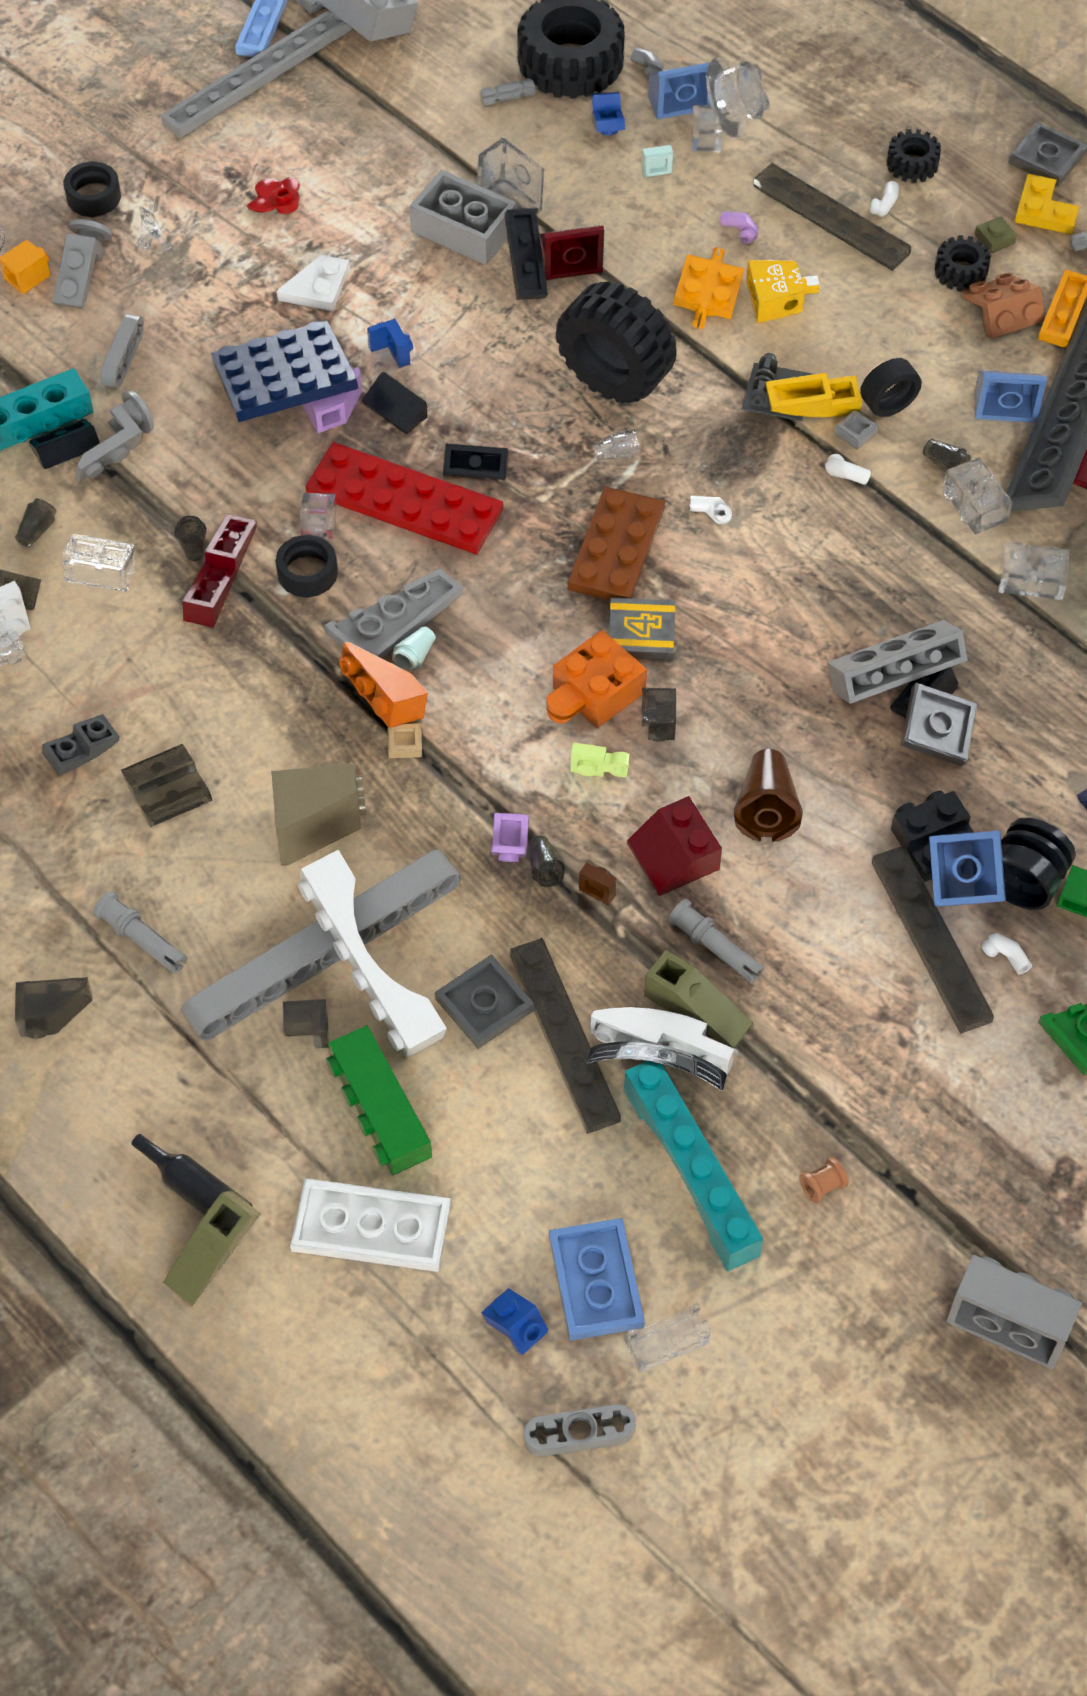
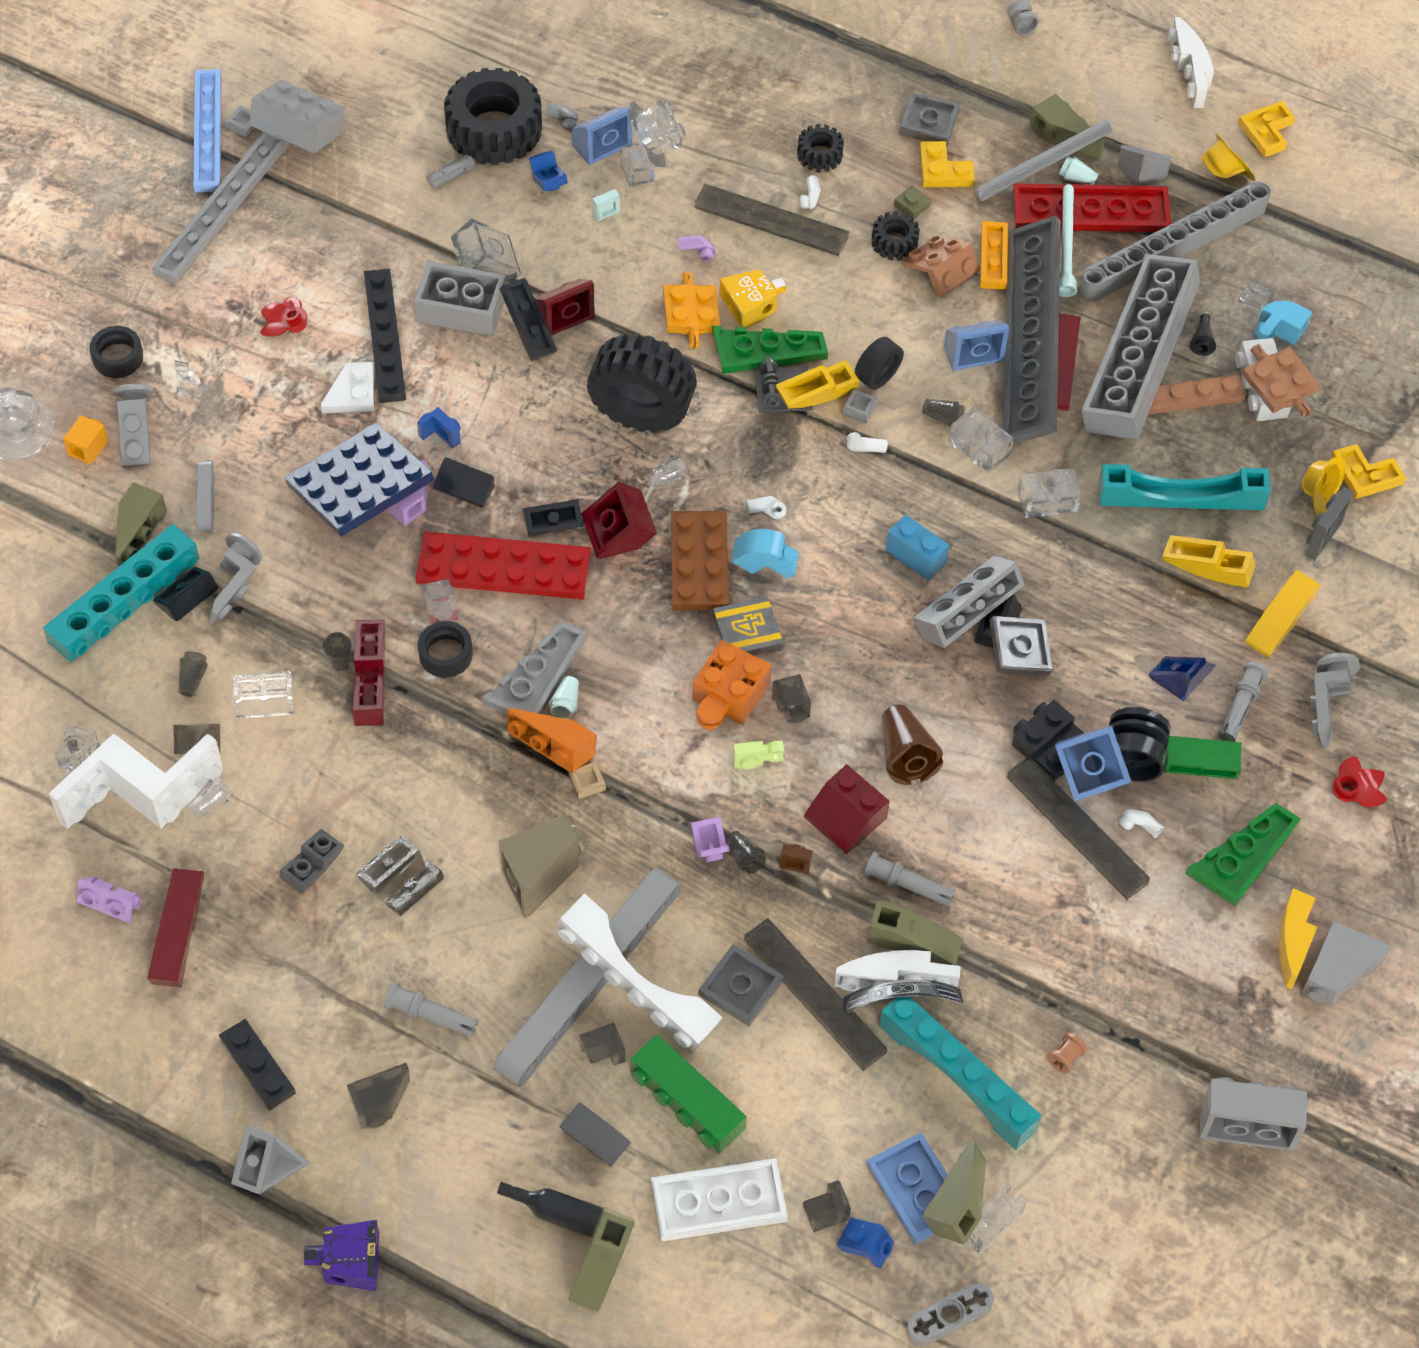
camera: 20 degrees left, 0 degrees up
(43, 355) = (137, 517): none -> olive slope
(261, 1114) = (595, 1134): none -> dark grey slope
(373, 238) = (384, 336): none -> black plate
(486, 1271) = (828, 1208): none -> clear smoke panel
(543, 482) = (618, 521): none -> dark red slope
(633, 1302) = (959, 1200): none -> olive slope
(689, 548) = (765, 549): none -> medium azure brick
(749, 339) = (745, 350): none -> green wing
(861, 590) = (917, 547): none -> dark azure brick

